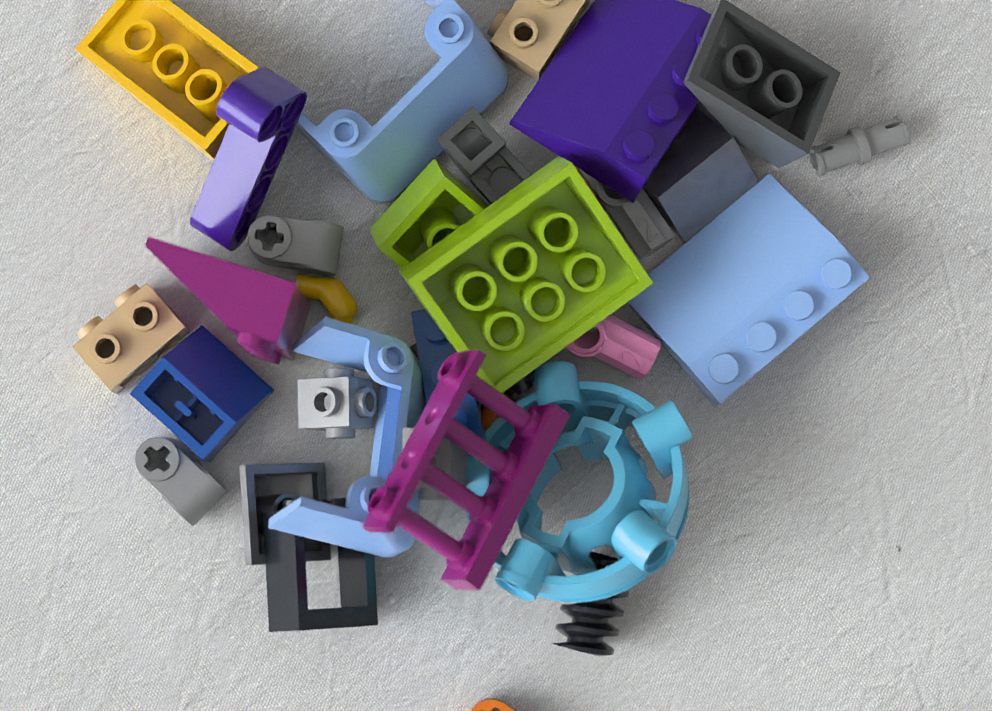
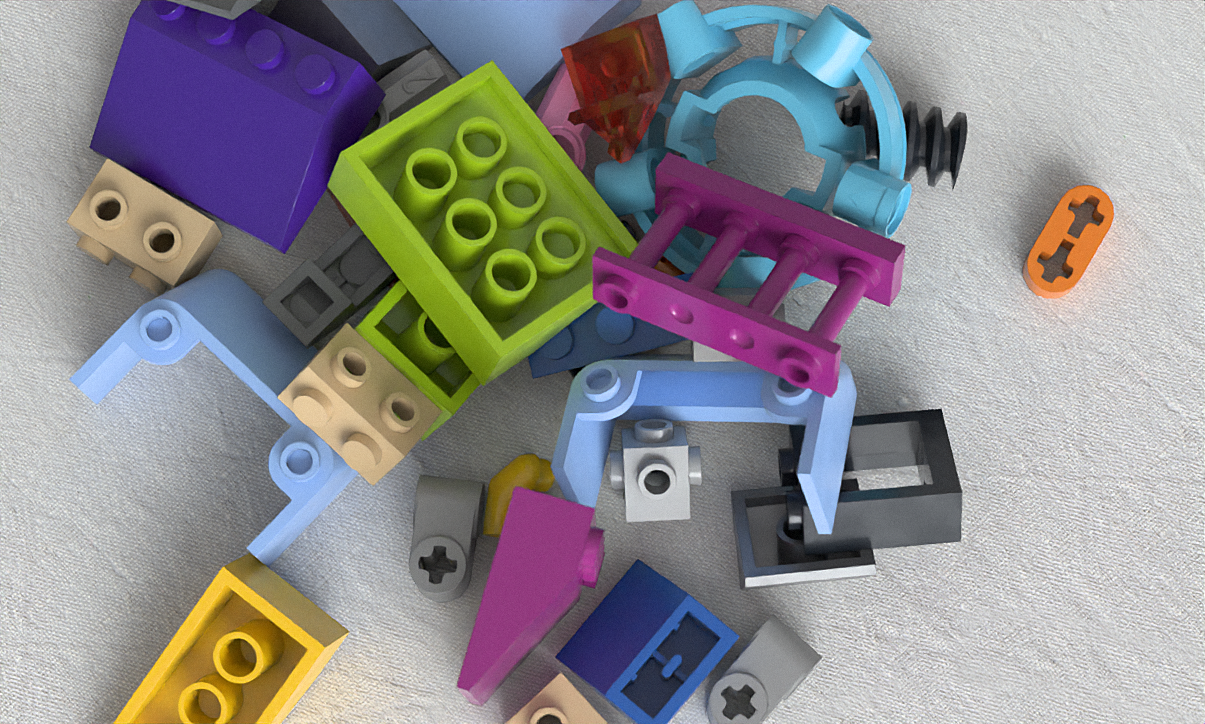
camera: 90 degrees left, 5 degrees down
(261, 120) = (300, 575): dark purple beam -> none
(386, 177) = (358, 408): none -> tan brick
(632, 381) = (619, 82): none -> clear red slope

